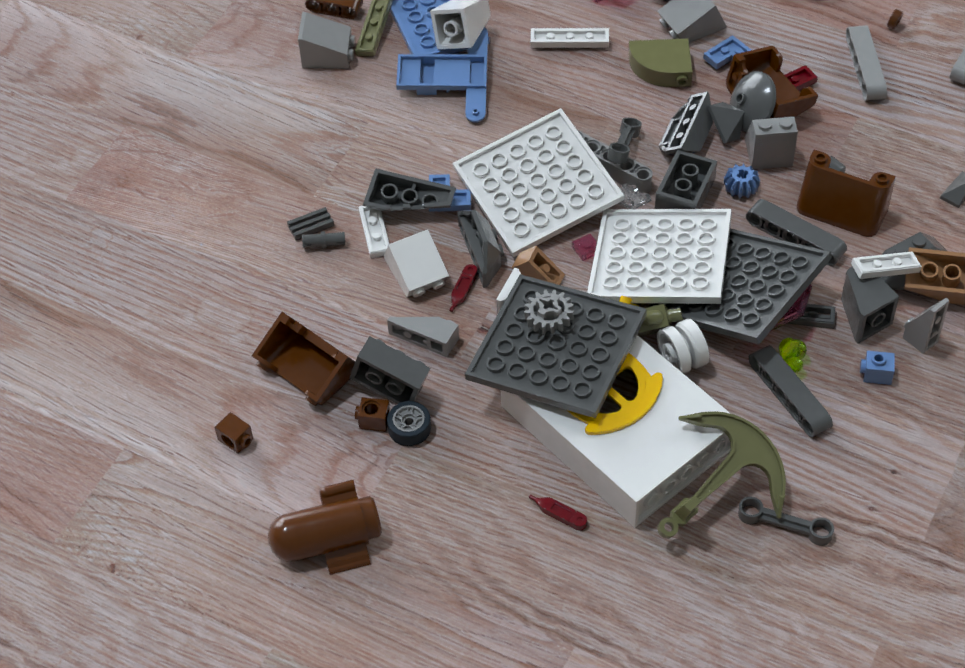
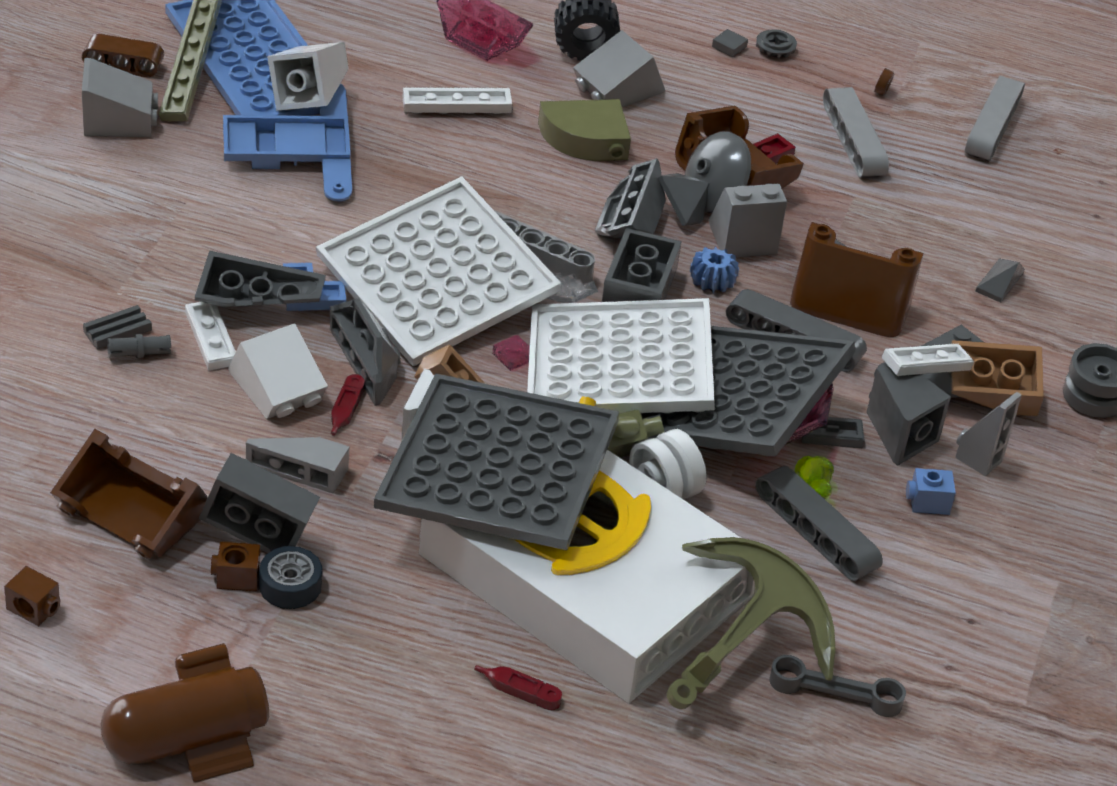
camera: 15 degrees left, 10 degrees down
(549, 311) = (486, 415): light grey gear -> none
(620, 150) = (549, 229): dark grey piece -> none
(724, 52) = (666, 118): medium blue plate -> none

